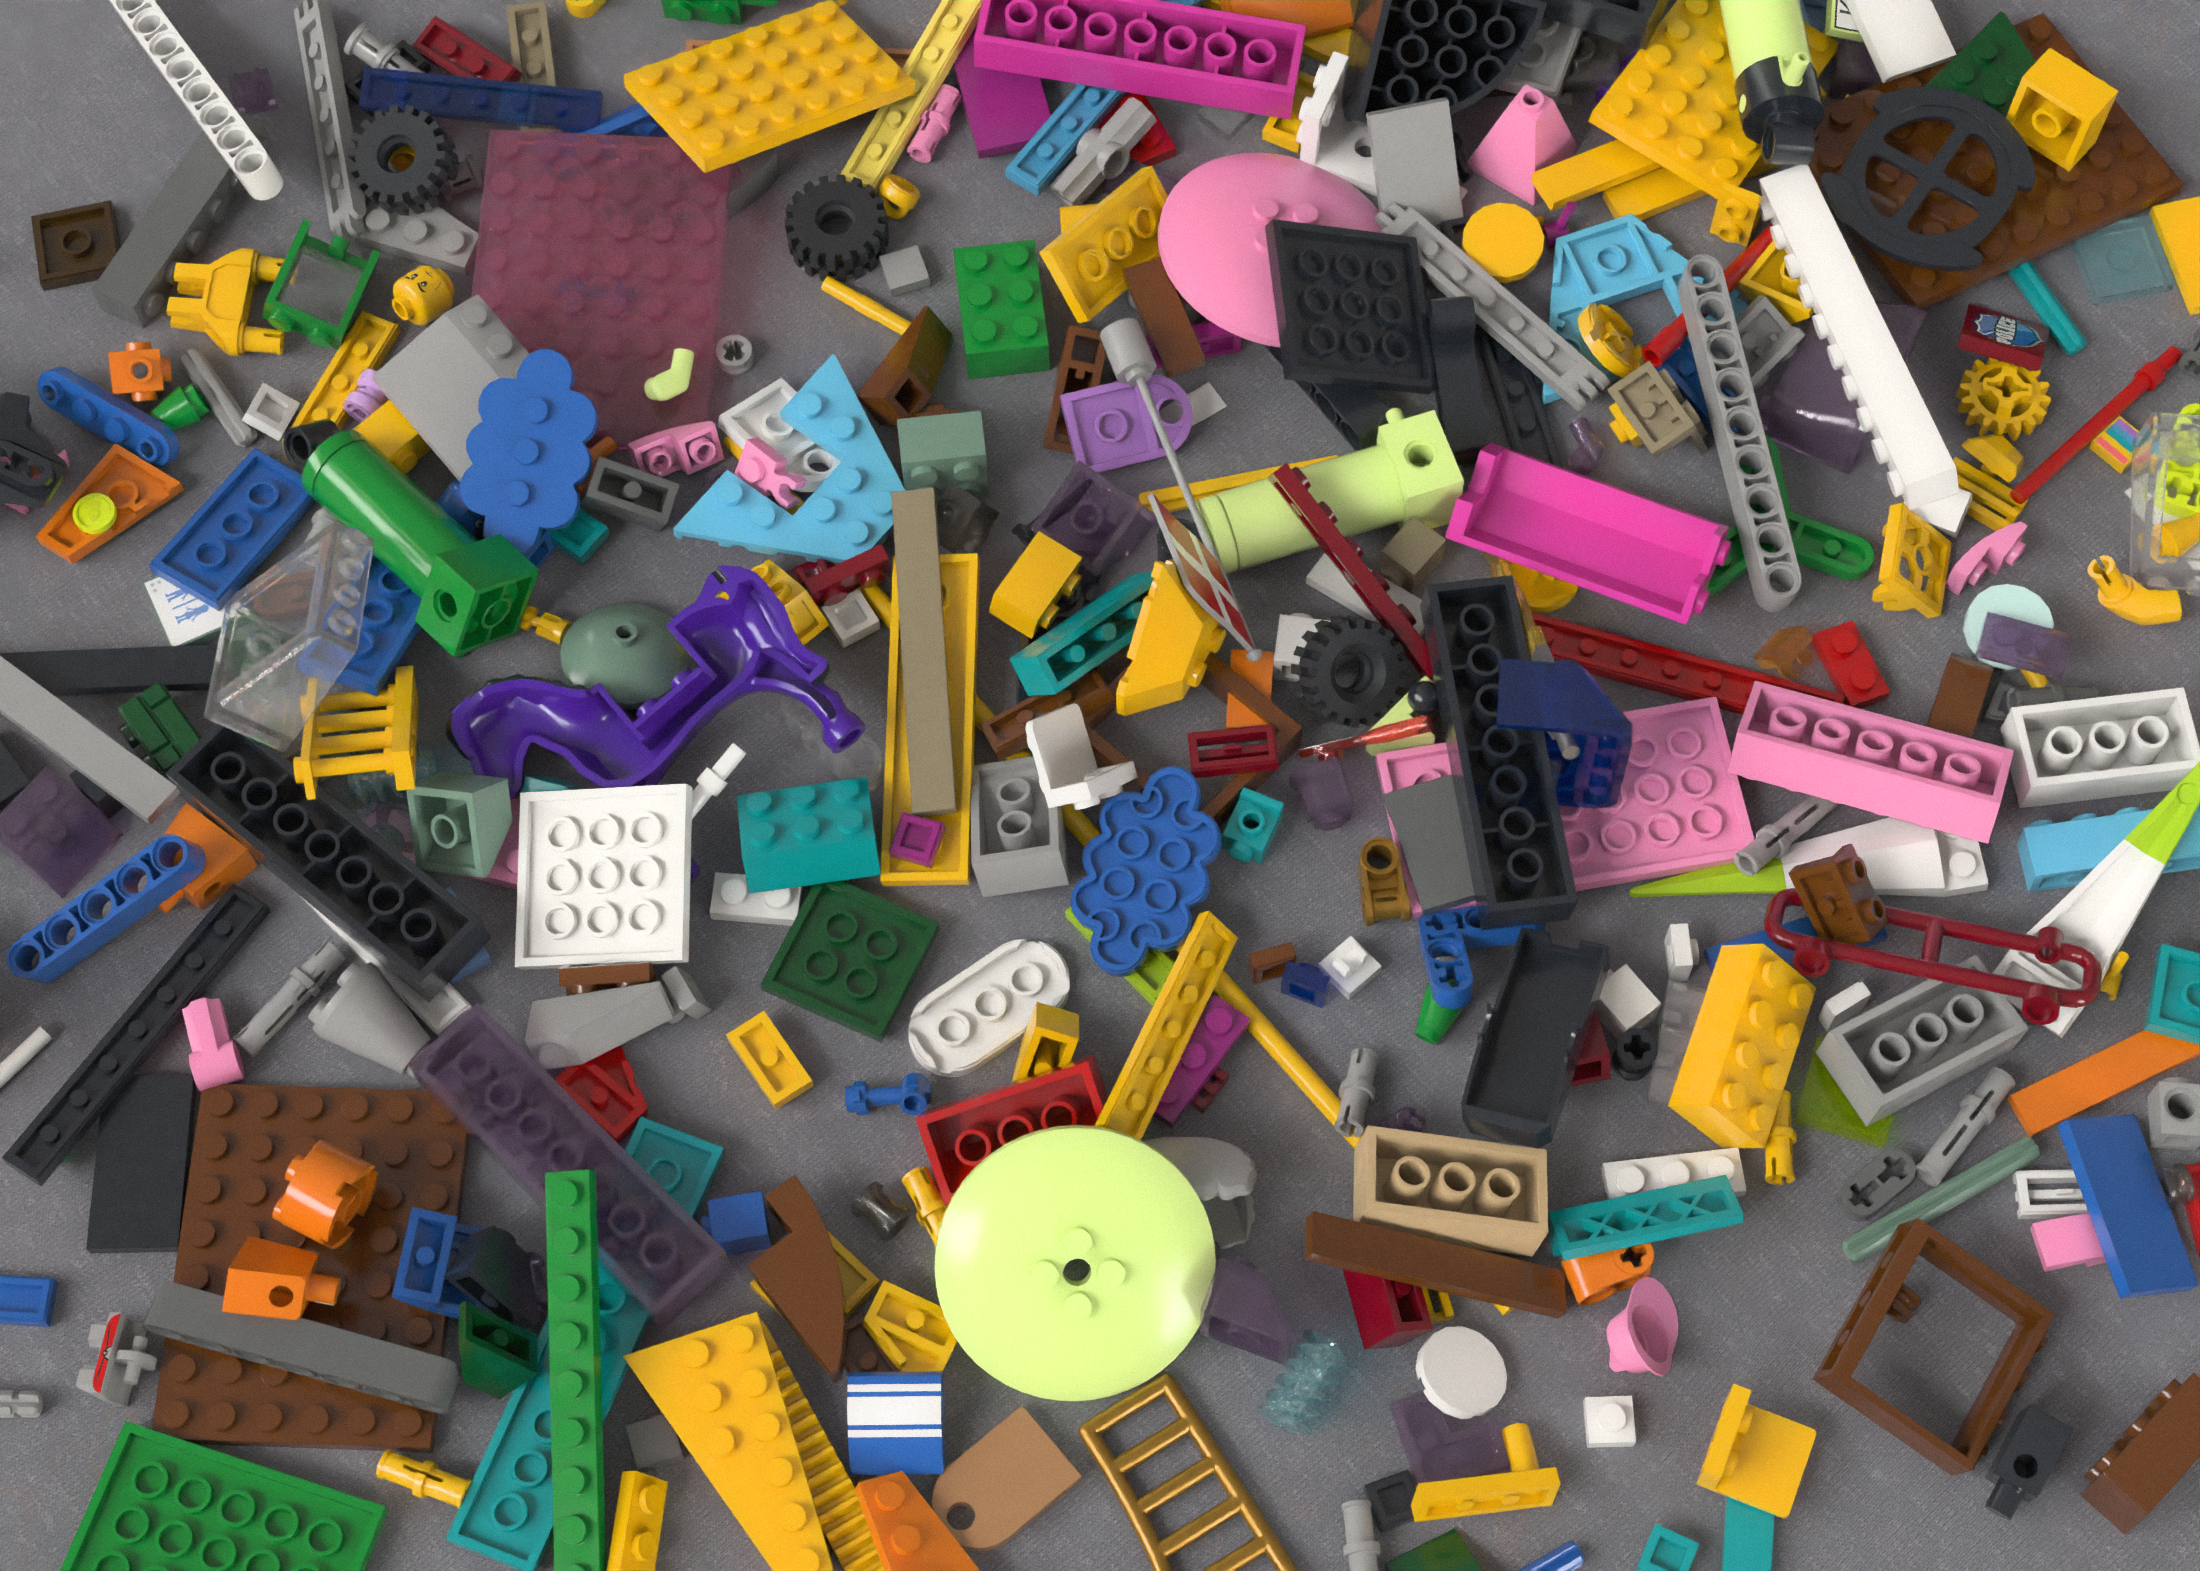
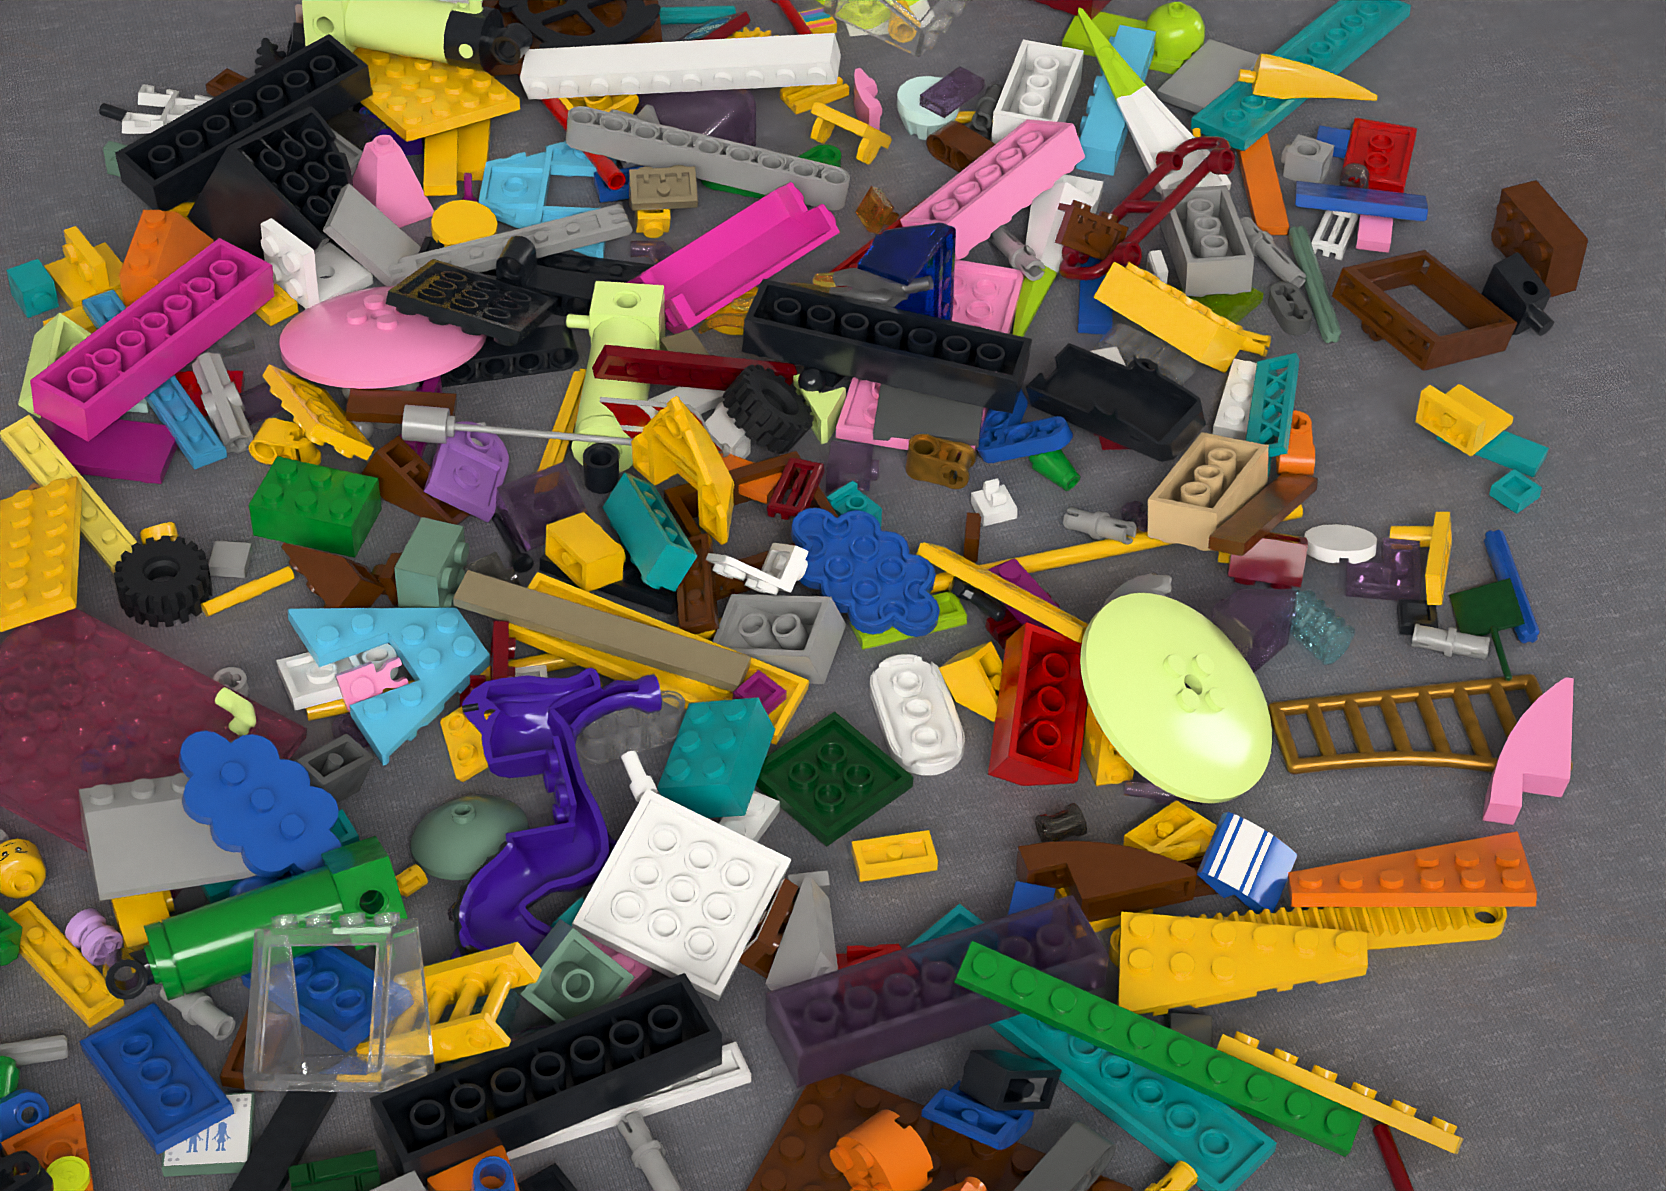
camera: 70 degrees left, 20 degrees down
(270, 411) = (53, 1015): white plate -> none
(370, 1020) = (717, 1106): light grey cone -> none
(494, 1351) = (1077, 1099): dark green slope -> none
(677, 448) = (301, 732): bright pink slope -> none
(911, 1096) = (966, 777): blue bar -> none
(926, 1199) = (1081, 794): yellow pin -> none
(934, 123) = (121, 507): bright pink pin -> none
(1005, 1482) = (1313, 823): medium nougat tile -> none
(1305, 983) = (998, 526): clear blue plate -> none
(1382, 734) = (819, 445): clear red piece -> none
(1609, 1421) = (1403, 490): white plate -> none
(1610, 339) = (575, 198): yellow tile -> none
(1645, 1331) = (1355, 449): bright pink piece -> none
(1680, 952) = (1076, 331): white plate -> none
(1736, 214) = (529, 111): yellow bracket -> none
(1850, 665) = (905, 190): red plate -> none
(1947, 513) = (807, 96): white brick -> none
(2130, 599) = (935, 54): yellow arm -> none

